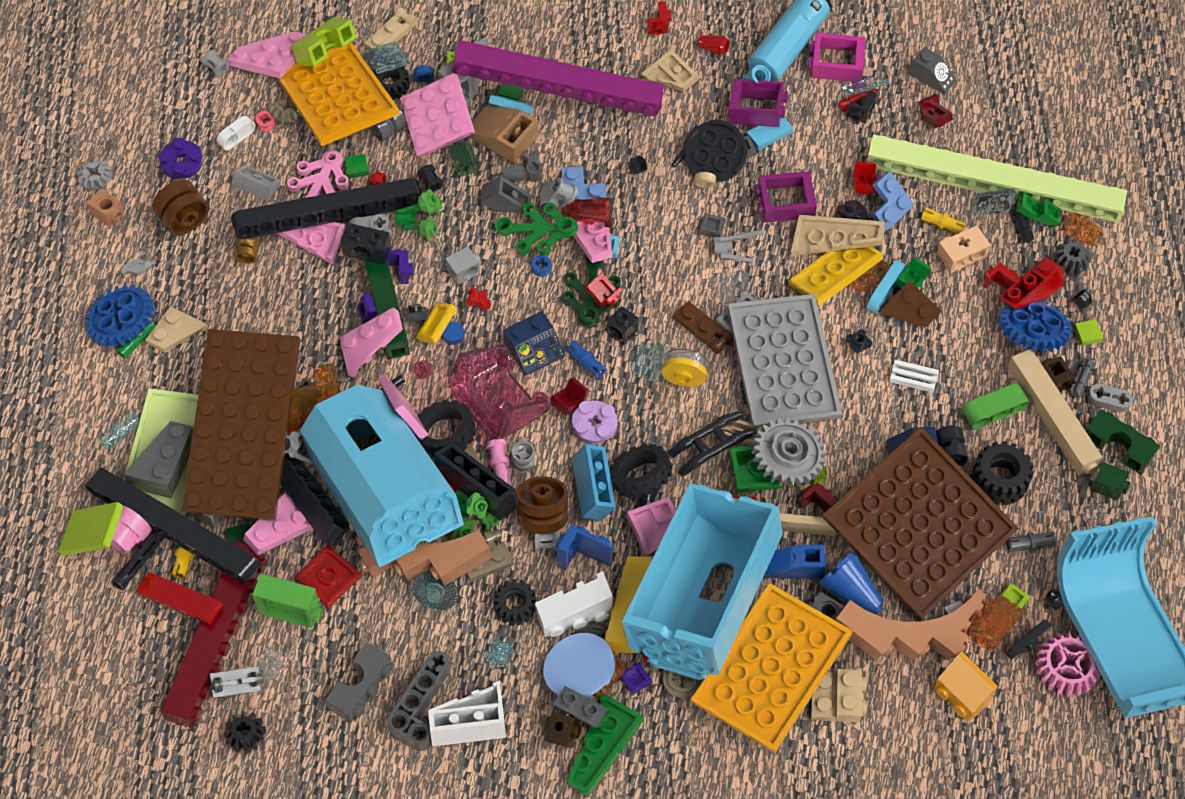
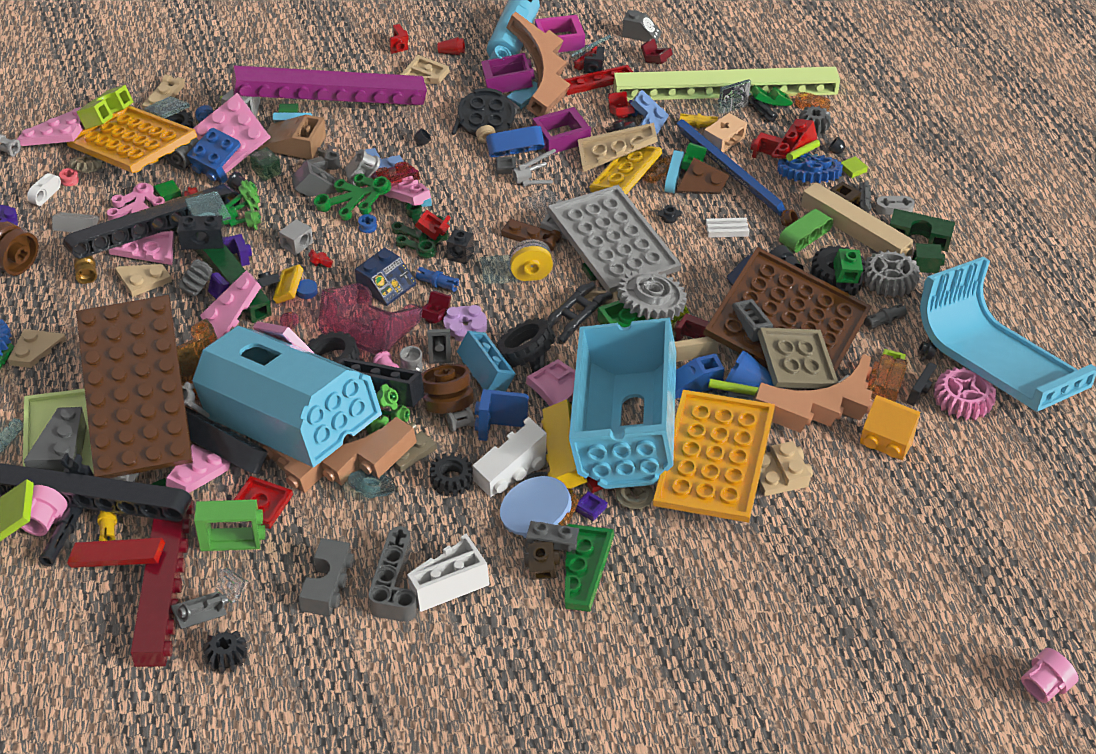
camera: 20 degrees left, 15 degrees down
(169, 497) = (75, 465): none -> black plate
(300, 273) = (143, 277): none -> tan wing
(346, 293) = (195, 277): none -> dark grey gear
(383, 210) = (207, 205): none -> clear light blue piece
(412, 136) = (212, 153): none -> blue bracket
(499, 653) = (454, 518): clear light blue wheel -> none
(556, 445) = (439, 346): none -> dark grey slope
(730, 201) = (515, 141): none -> blue beam
(805, 105) = (549, 66): none -> nougat arch
(829, 592) = (732, 387): none -> lime bar
(854, 131) = (595, 79): none -> red tile
(877, 531) = (752, 319): none -> dark grey slope
(905, 576) = (797, 358): none -> dark tan plate
(950, 299) = (732, 168): none -> blue tile
(984, 384) = (788, 217): none -> reddish brown plate
(1007, 478) = (848, 266): none -> green brick
(1036, 300) = (802, 150): none -> lime bar
(1064, 482) = (891, 273): none -> light grey gear

